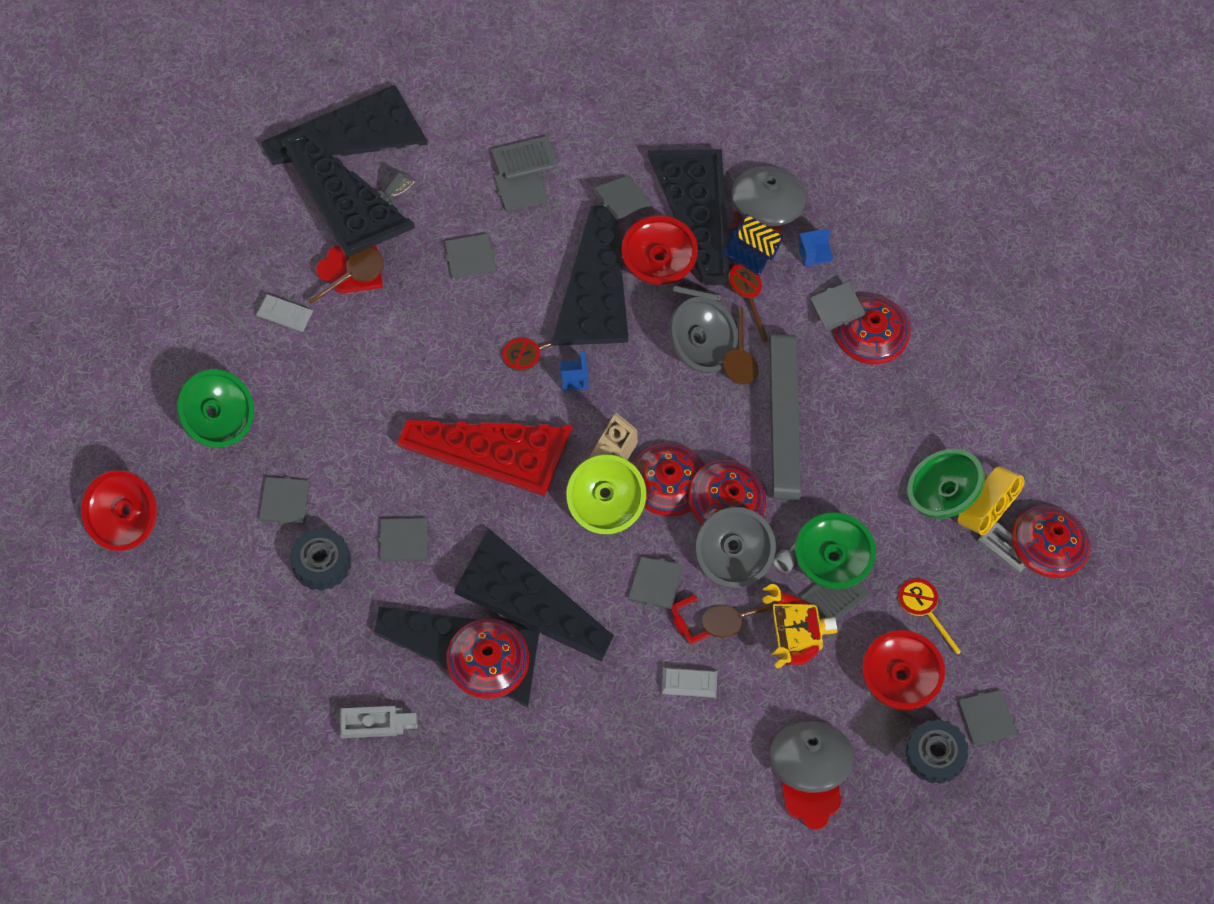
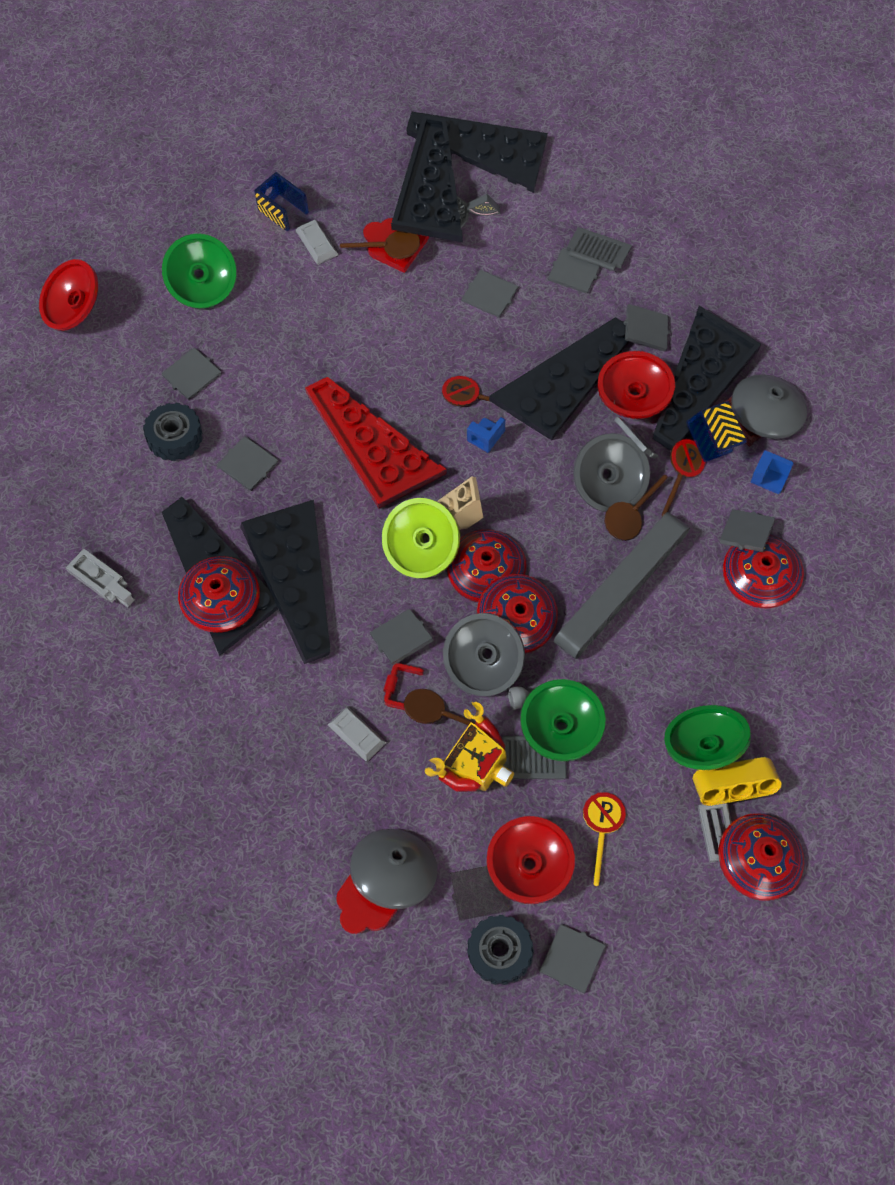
camera: 45 degrees right, 0 degrees up
(223, 310) = (288, 191): none -> clear blue piece

